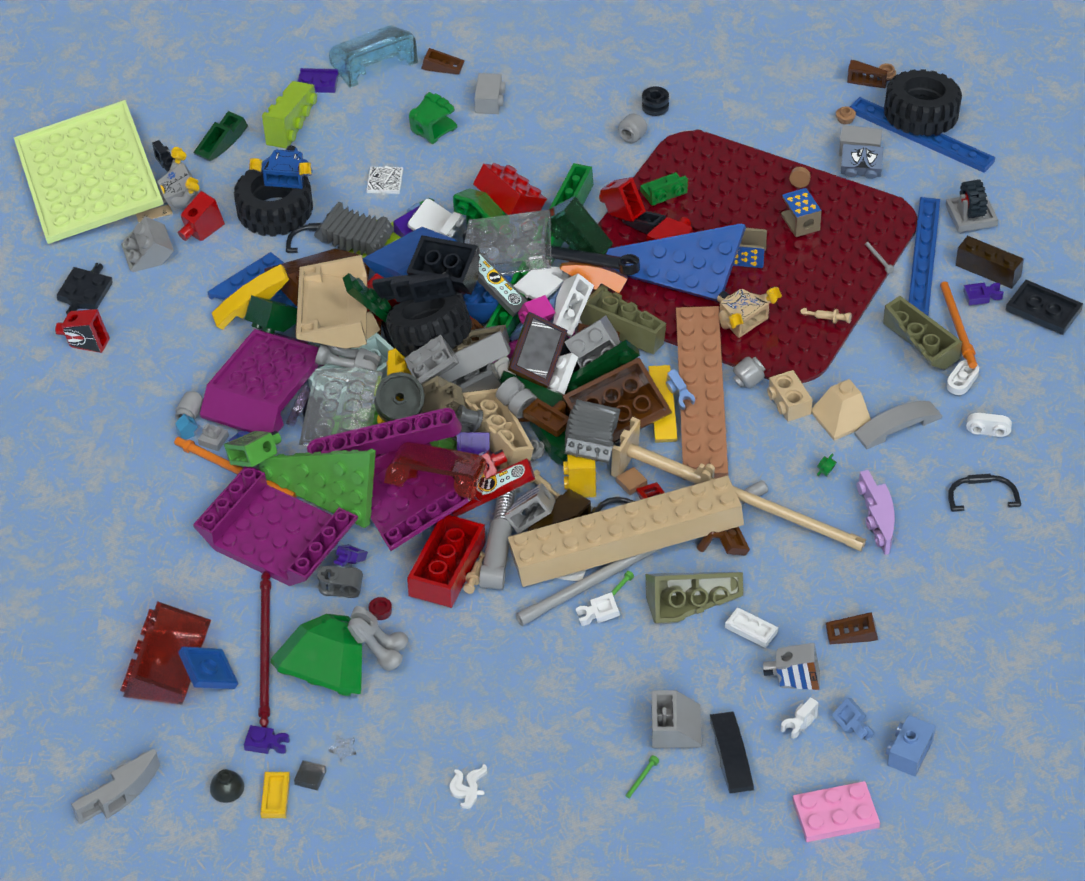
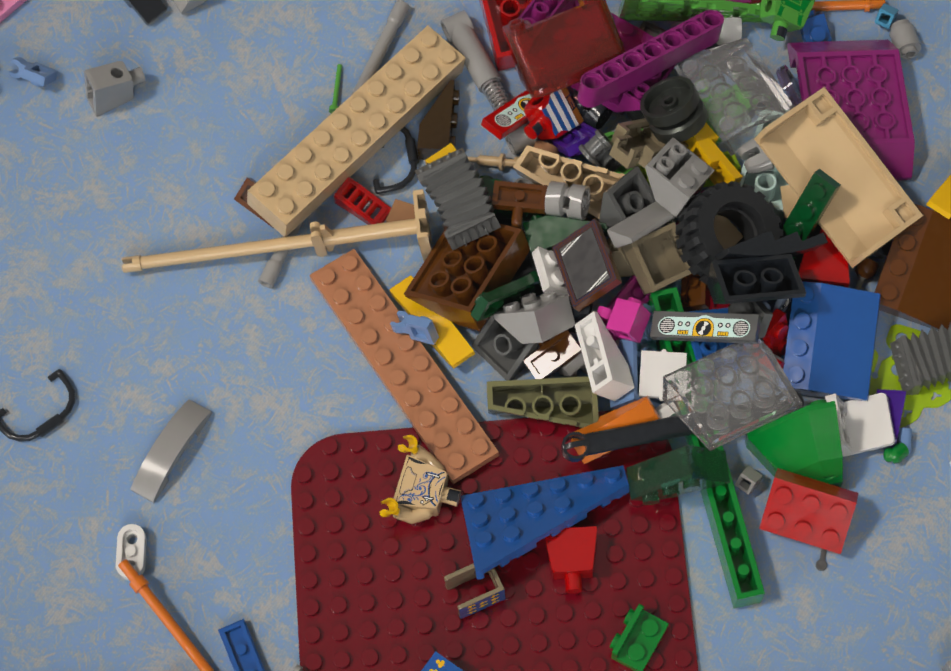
camera: 150 degrees right, 20 degrees up
(213, 437) = (852, 26): light grey tile -> none
(270, 315) = (916, 171): dark green slope -> none
(474, 576) = (477, 23): tan piece -> none
(536, 503) = (467, 107): light grey torso -> none
(602, 609) = (333, 55): white plate -> none
(622, 199) = (666, 568): red torso -> none
(646, 221) = (613, 559): black slope -> none
(680, 595) = (274, 105): olive wedge -> none
(748, 372) = (365, 415): light grey head -> none
(751, 627) = (181, 115): white plate -> none
(789, 395) = (299, 415): tan brick -> none
(804, 717) = (79, 51): white plate -> none
(826, 465) = (213, 342): green plate -> none
(835, 316) = (325, 547): tan piece -> none
(841, 410) = (238, 426): tan slope -> none
(859, 621) = (80, 181): reddish brown slope -> none
(880, 510) = (127, 315): lavender slope -> none
(922, 332) = (200, 572): olive wedge -> none
(989, 424) = (61, 499): white plate -> none

